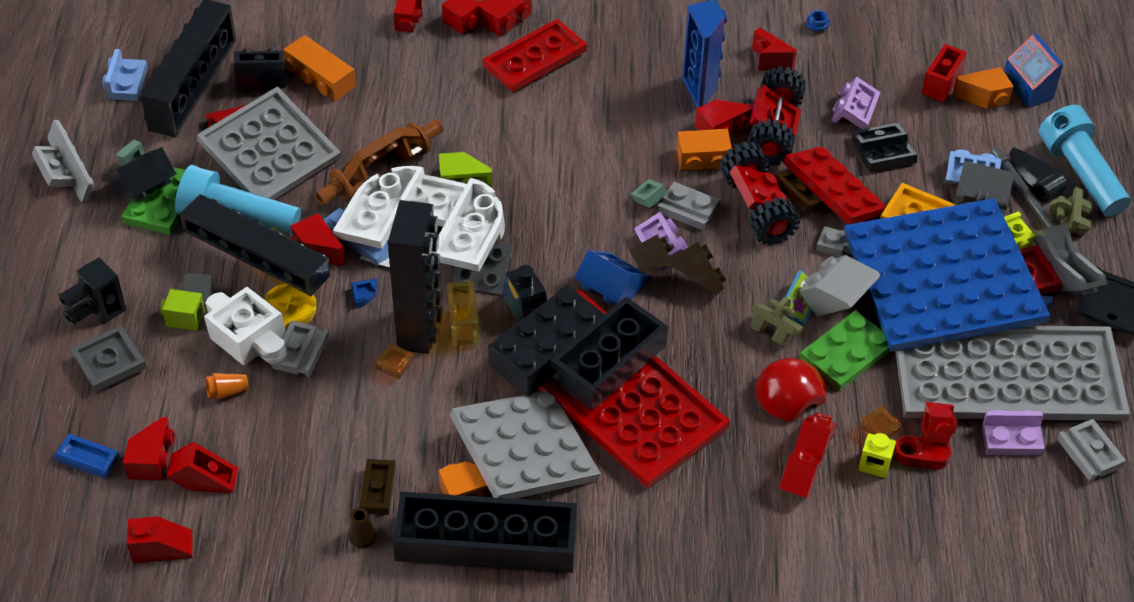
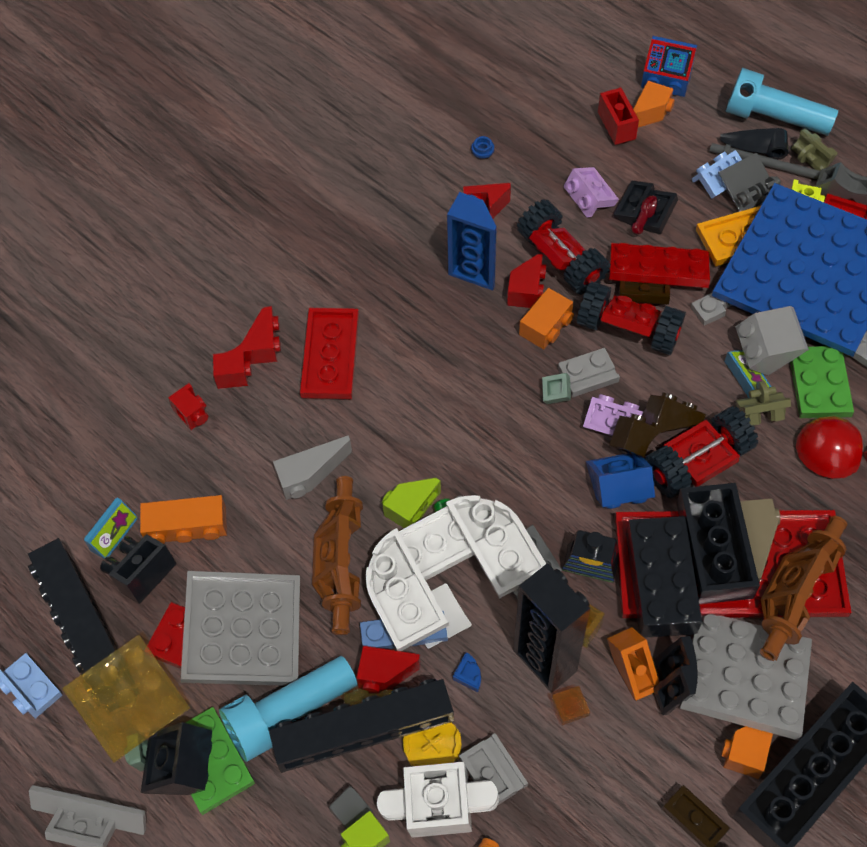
camera: 45 degrees left, 10 degrees up
(153, 111) = (126, 698): none -> clear yellow plate
(273, 35) = (110, 529): none -> slope
(426, 102) = (306, 469): none -> light grey slope
(464, 376) = (634, 662): none -> orange slope
(475, 394) = (677, 674): none -> black slope
(639, 415) = (794, 585): none -> dark orange plate
(645, 379) = (761, 525): none -> dark tan slope
(689, 305) = (702, 451): none -> plate
(877, 145) = (646, 211): none -> dark red piece

